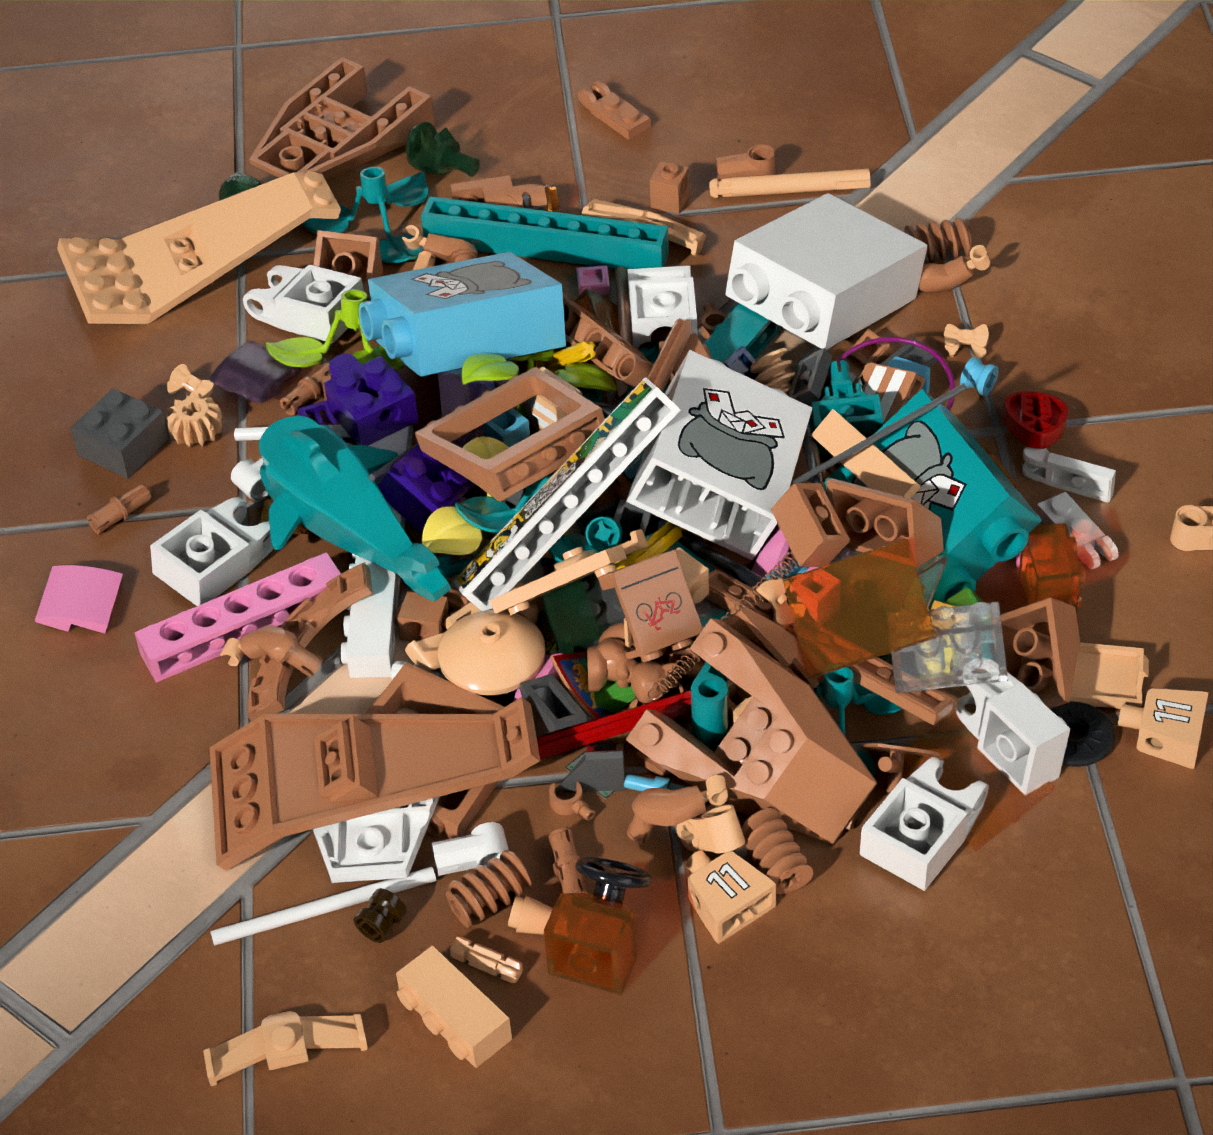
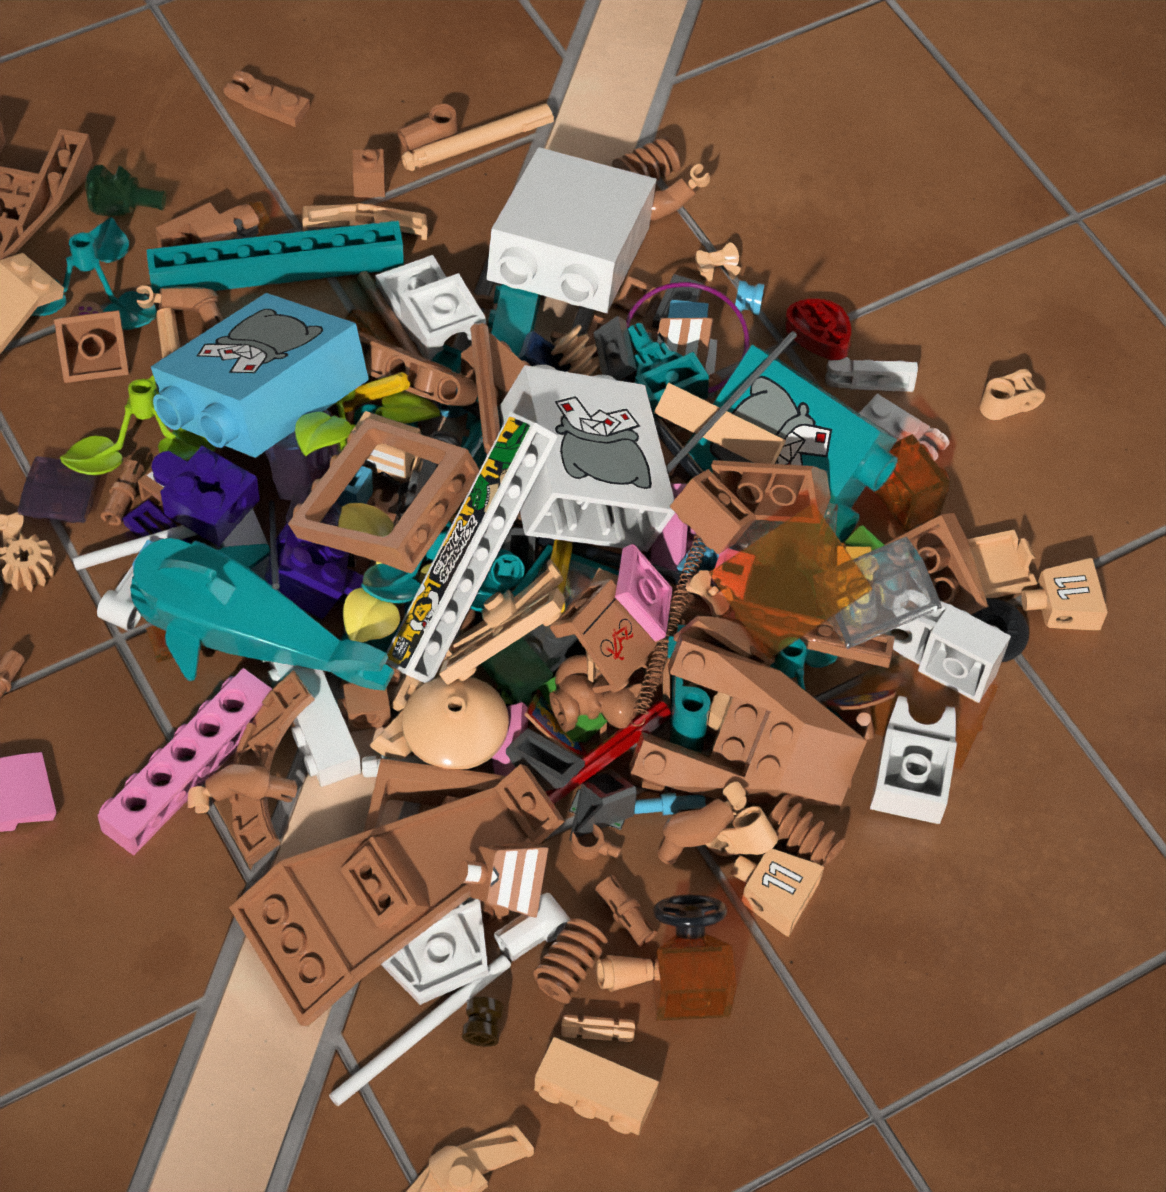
camera: 30 degrees left, 10 degrees up
(210, 551) = (123, 703): white brick -> none
(302, 300) = (73, 397): white brick -> none
(457, 789) = (507, 876): none -> nougat torso
(594, 279) = (340, 293): bright pink tile -> none
(709, 577) = (644, 592): none -> bright pink tile

